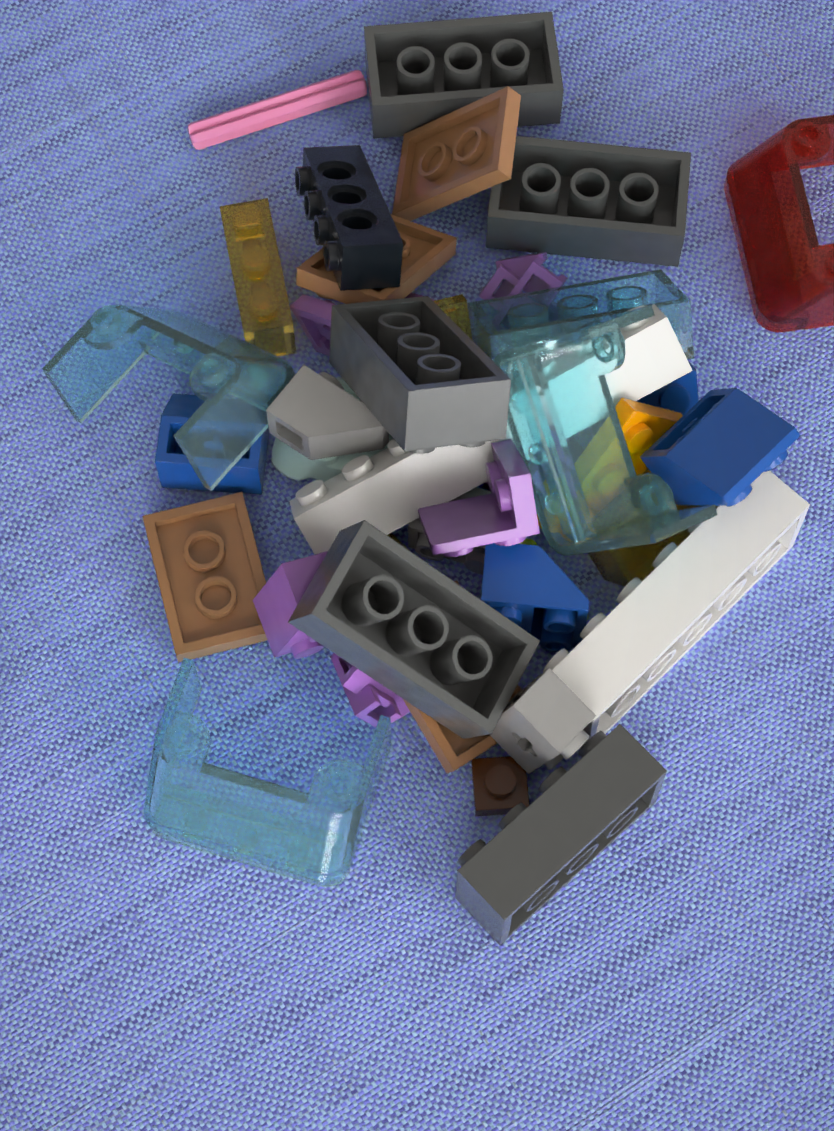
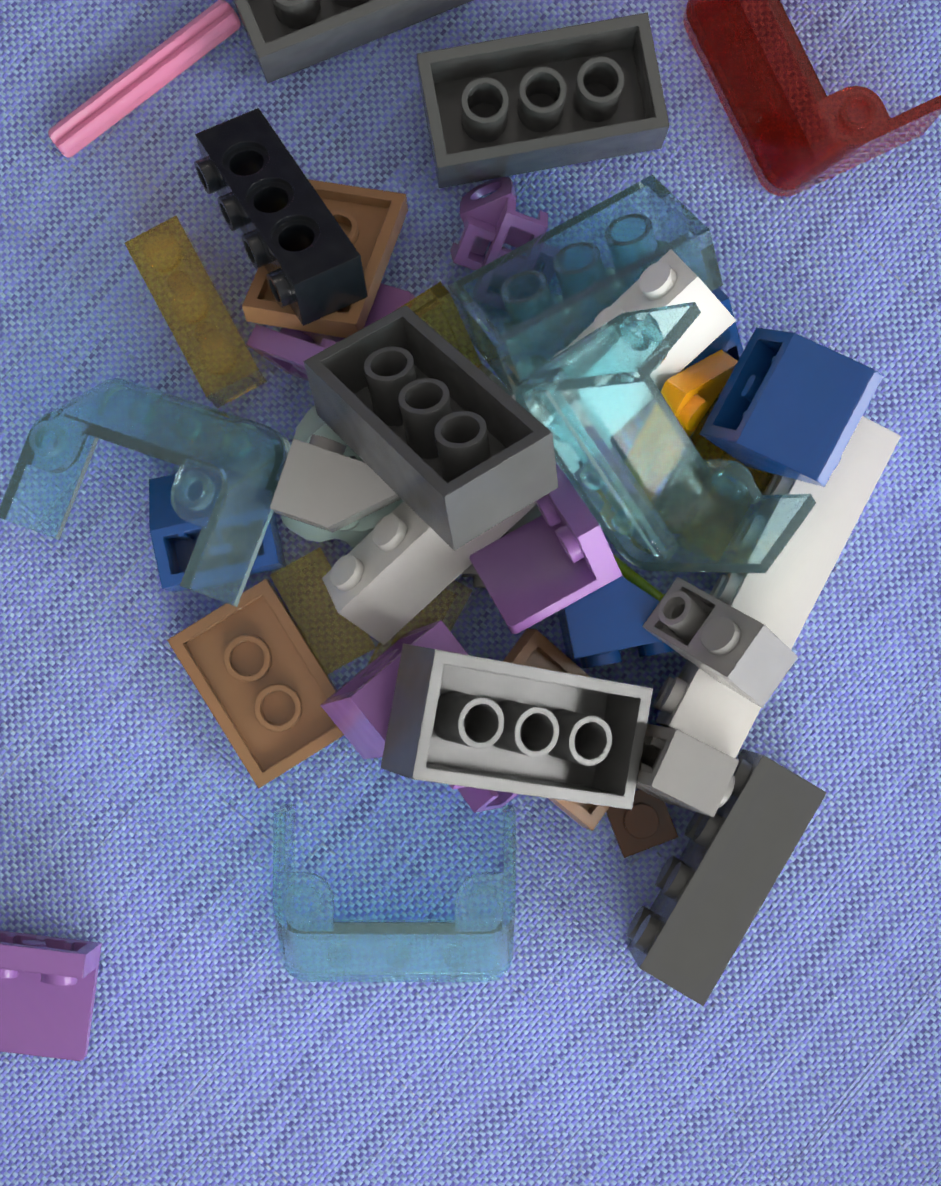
camera: 20 degrees left, 20 degrees up
(275, 529) = (328, 633): none -> clear yellow tile
(457, 155) = (378, 92): medium nougat plate -> none
(609, 611) = (721, 641): none -> light grey slope

